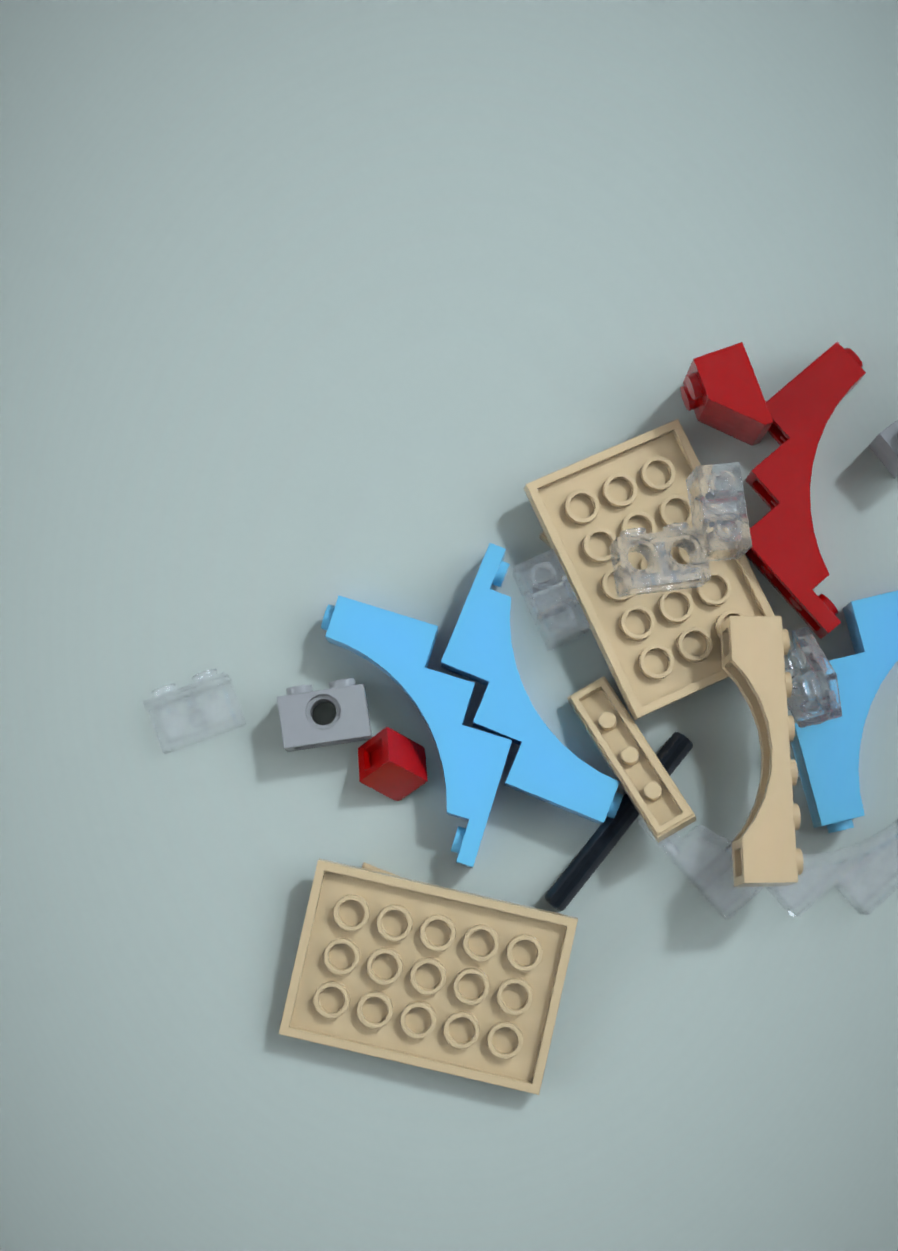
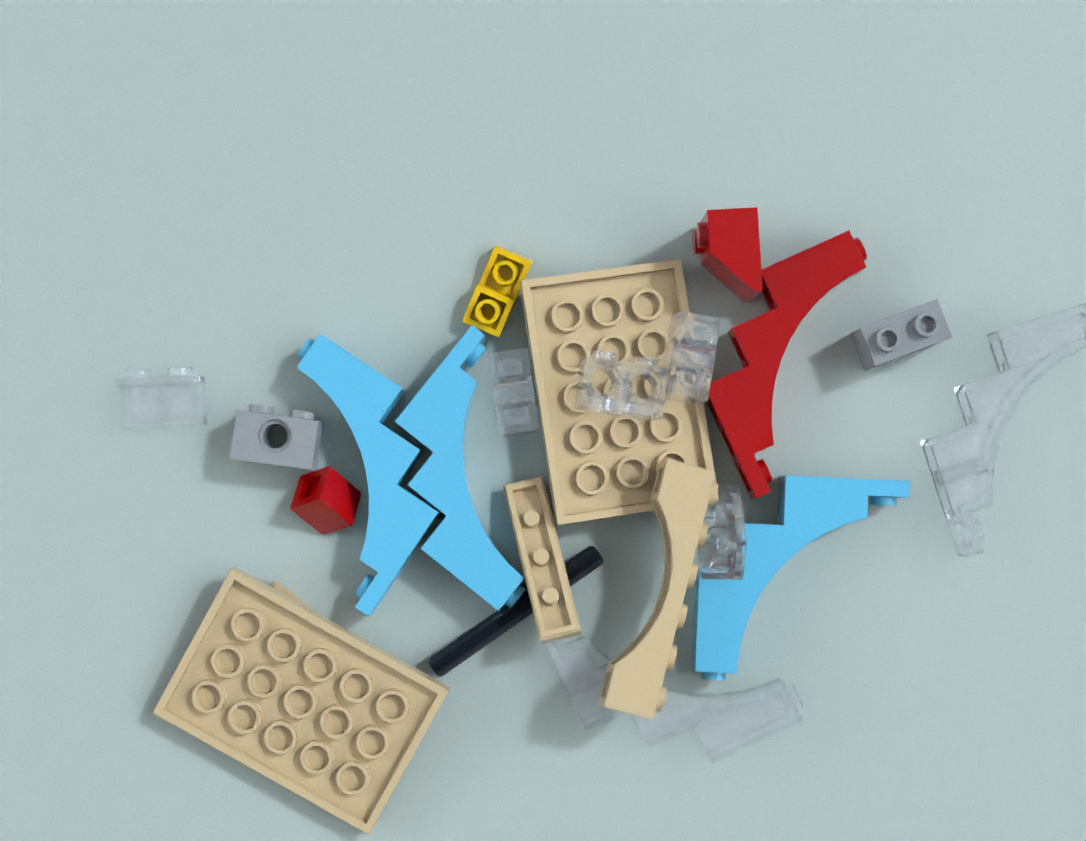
camera: 10 degrees right, 5 degrees up
(502, 504) = (497, 291): none -> yellow slope

